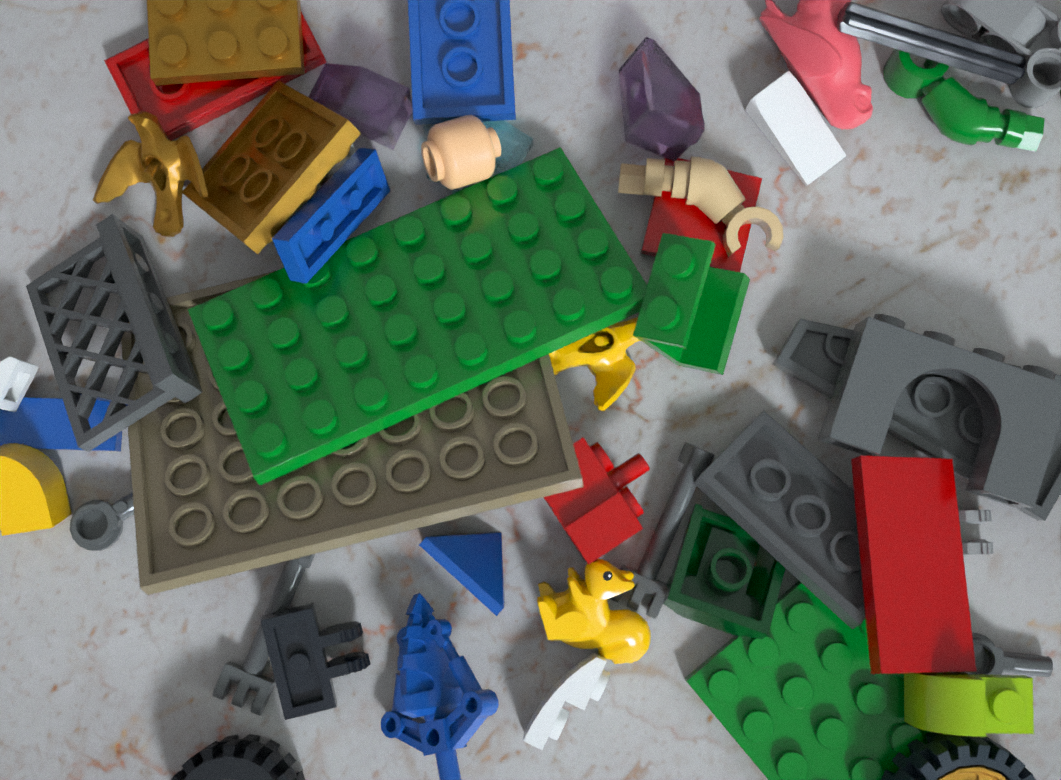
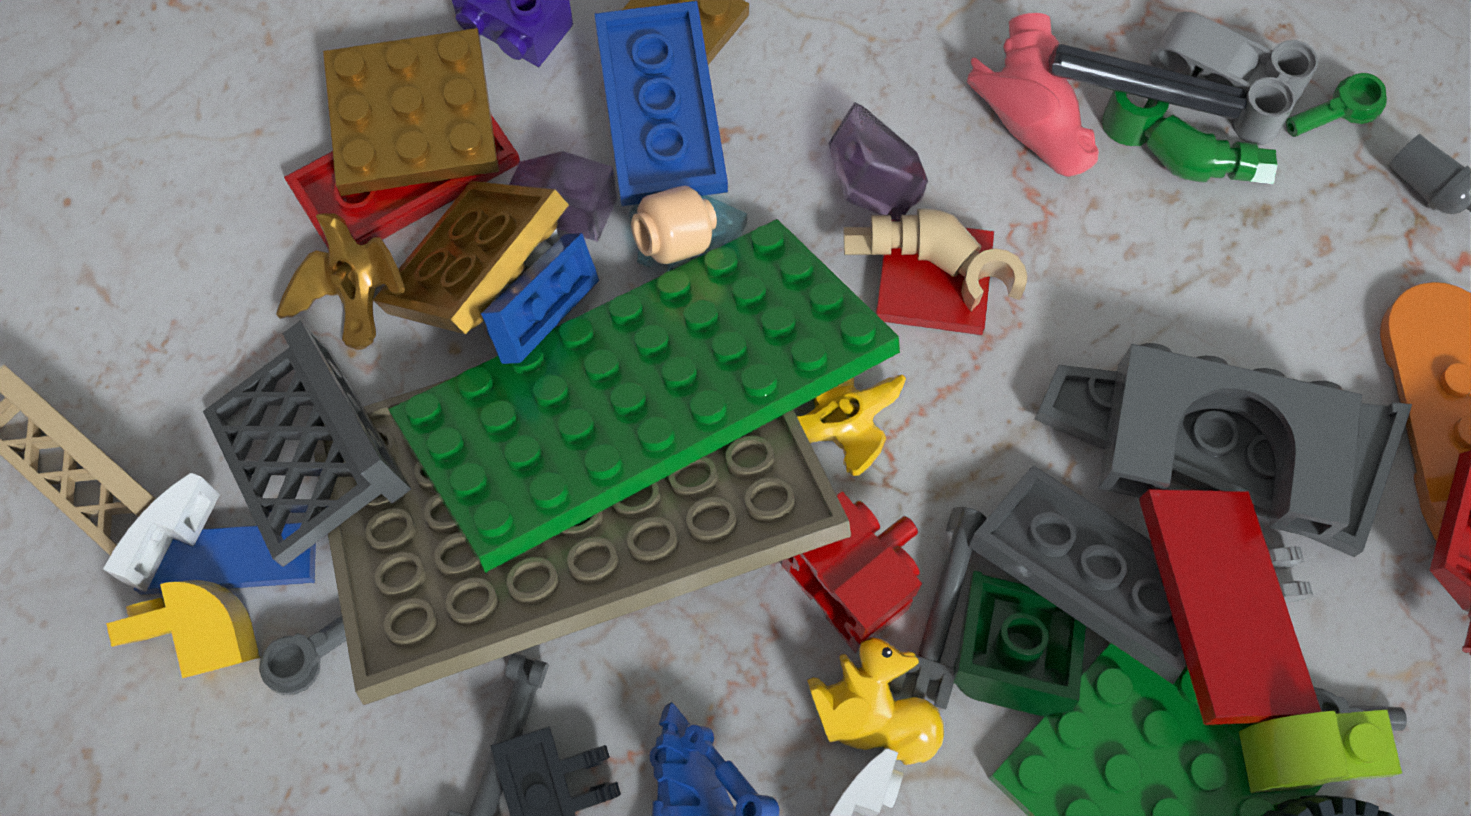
camera: 10 degrees left, 15 degrees down
(474, 562) = (729, 663): blue slope -> none
(691, 307) = (938, 364): green panel -> none
(795, 128) = (1020, 181): white slope -> none

